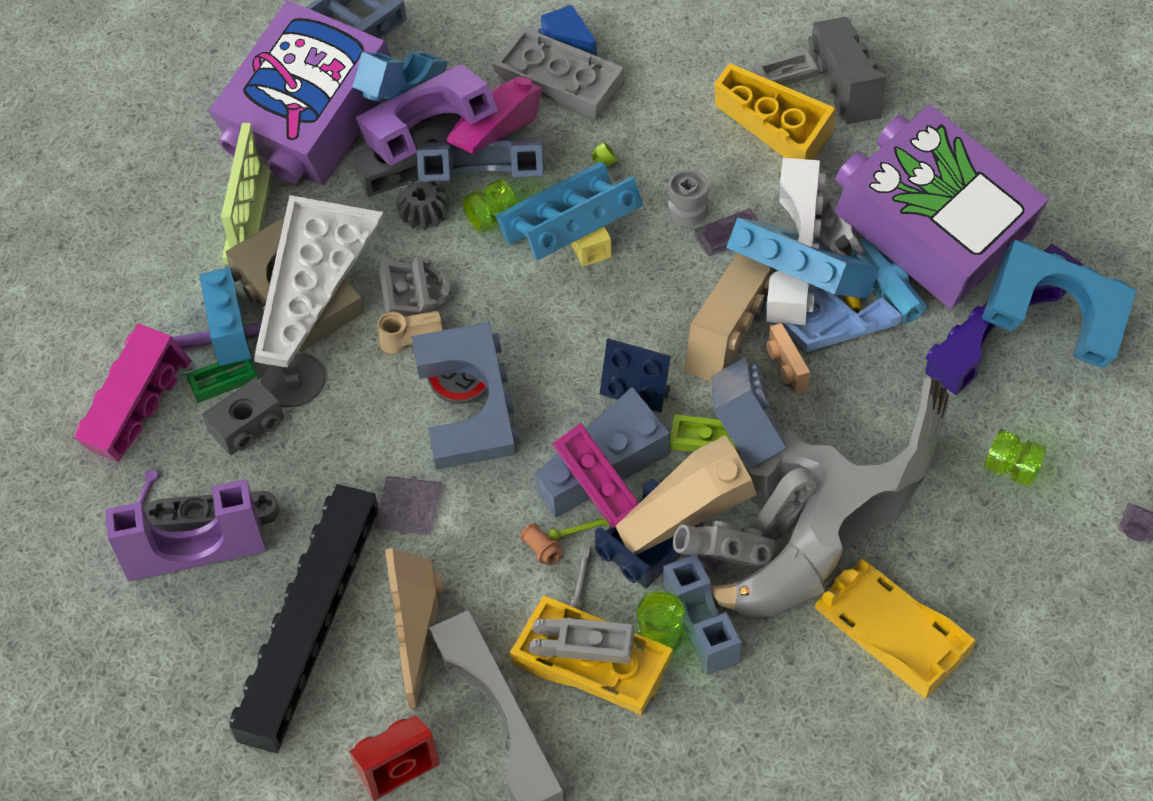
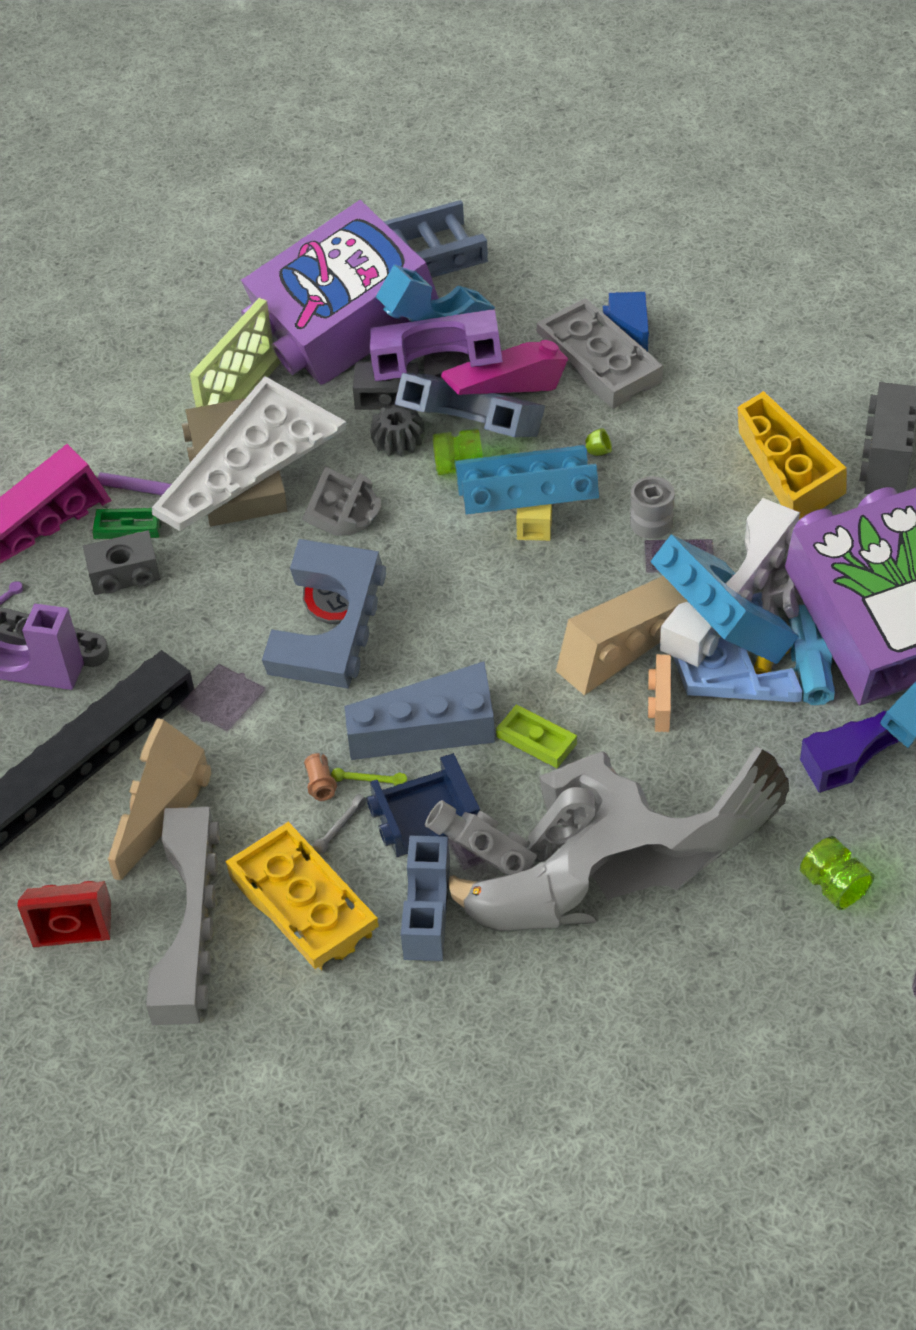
camera: 25 degrees right, 5 degrees down
(224, 316) = (158, 457): dark azure arch -> none
(297, 382) = (188, 549): dark grey piece -> none
(396, 330) = (302, 527): tan piece -> none
(584, 640) = (296, 875): light grey hinge -> none
(595, 474) = (397, 729): dark pink tile -> none
(637, 368) = (501, 650): dark blue hinge -> none
(661, 618) = (382, 888): clear neon green wheel -> none
(694, 492) = (483, 780): tan wedge -> none
(746, 412) = (572, 721): sand blue wedge -> none
(788, 73) = (832, 425): light grey tile -> none
(896, 627) = (616, 990): yellow piece -> none

